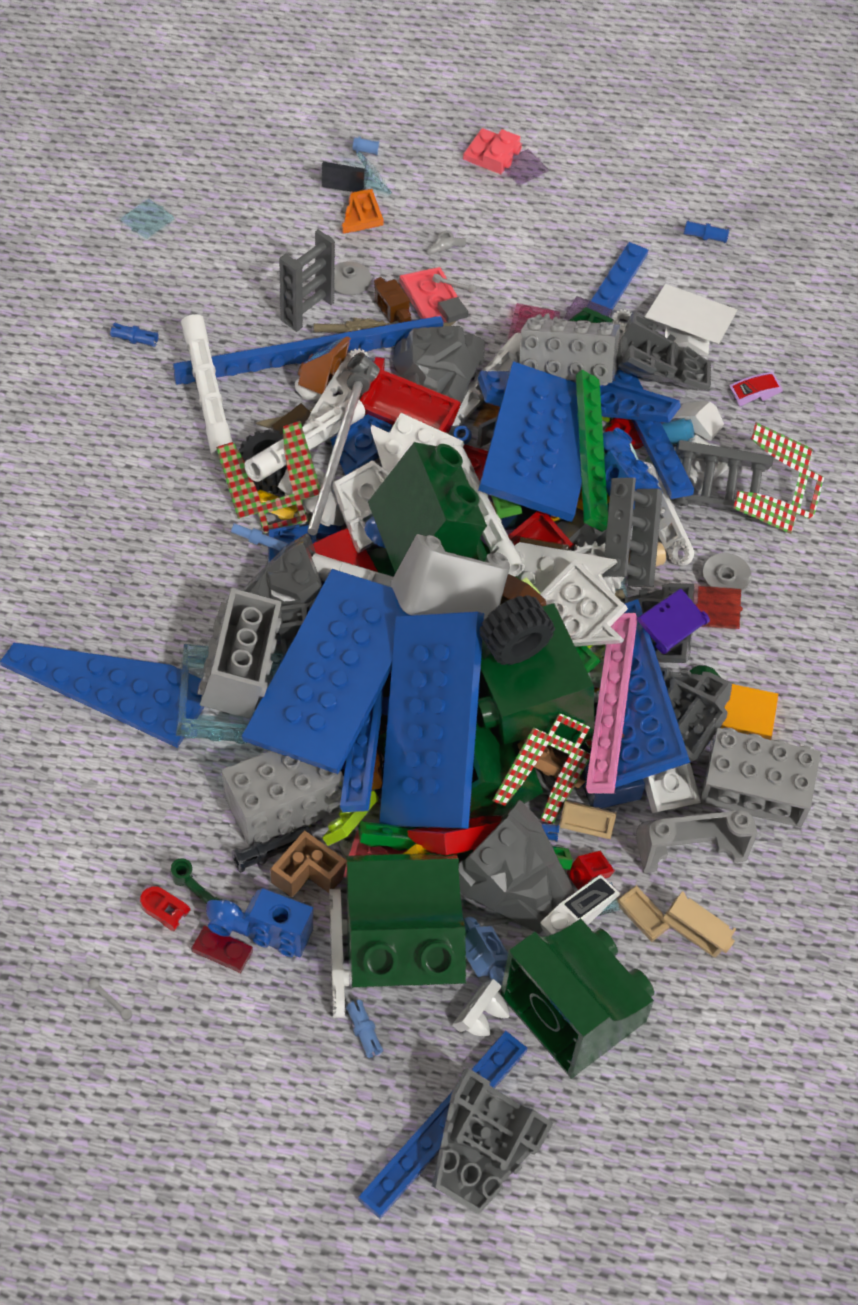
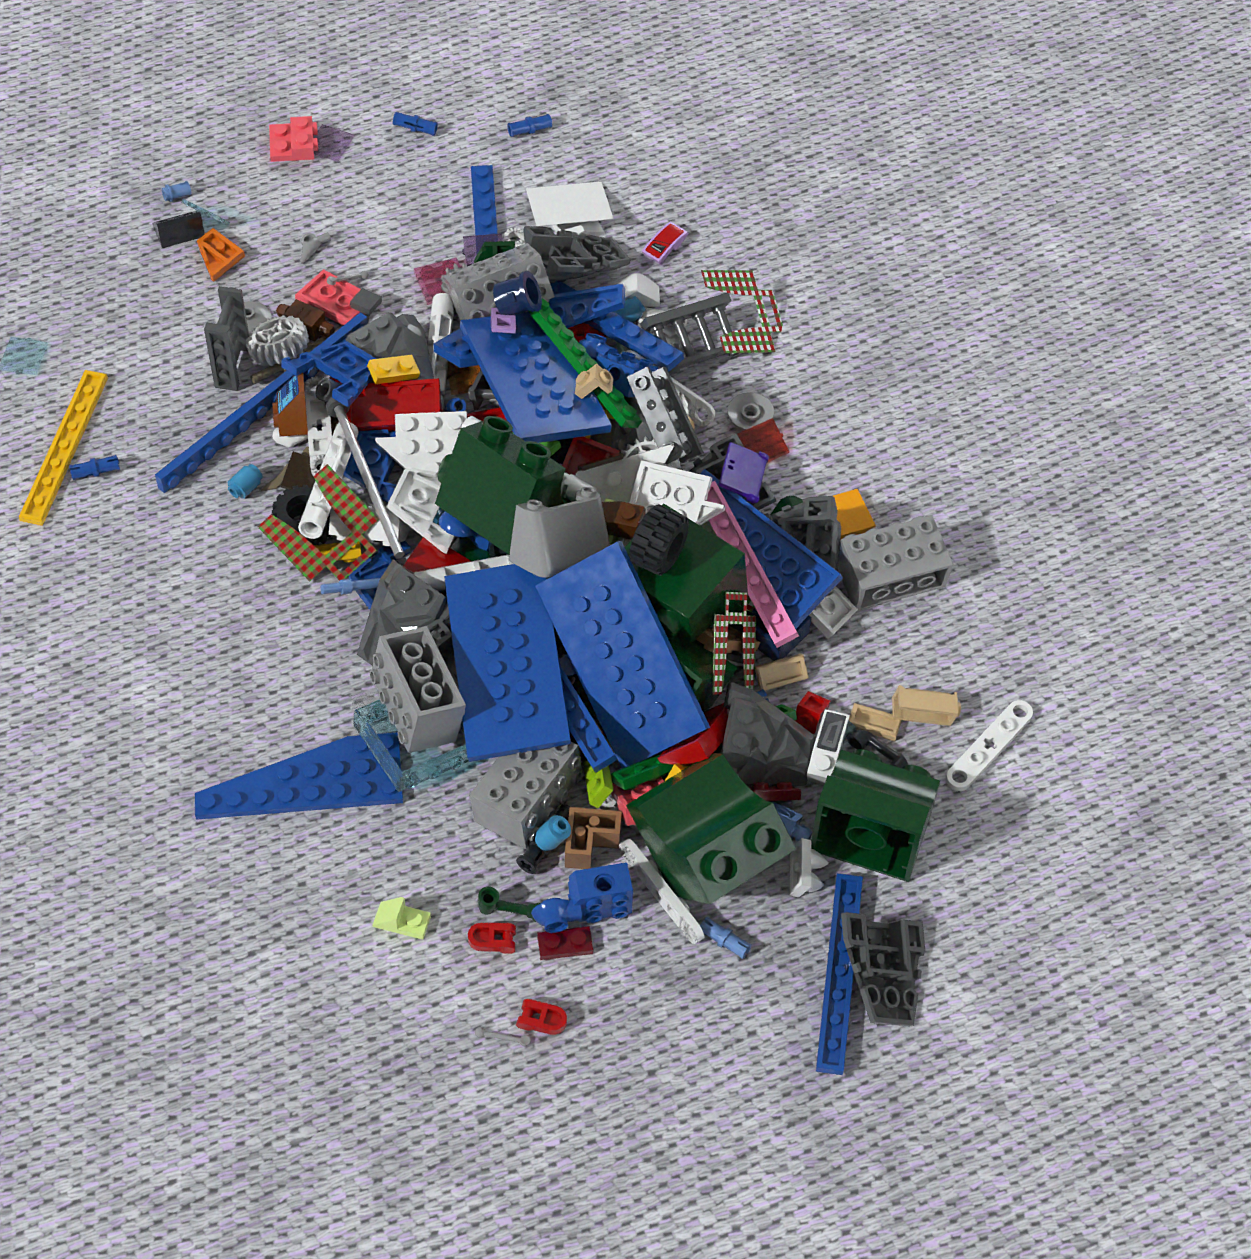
camera: 30 degrees left, 0 degrees up
(102, 847) = (398, 918): none -> yellowish green slope
(123, 307) = (63, 448): none -> yellow tile
(159, 1009) = (551, 1021): none -> red plate
(204, 374) = (202, 477): white piece -> none
(244, 407) = (244, 481): none -> dark azure brick
(273, 844) = (552, 833): none -> dark azure brick
(354, 305) = (277, 340): none -> white gear
(390, 350) = (340, 361): none -> blue wing
(426, 374) = (393, 369): none -> yellow plate
(489, 917) = (781, 792): none -> dark red plate
(547, 379) = (502, 323): none -> lavender slope
(571, 362) = (518, 295): none -> dark blue piece
(587, 466) = (591, 379): none -> tan bracket
(606, 184) = (415, 123): none -> blue pin
(619, 922) = (861, 739): none -> black bar
(719, 1002) = (979, 758): none -> white piece
(730, 830) = (898, 619): light grey windscreen -> none

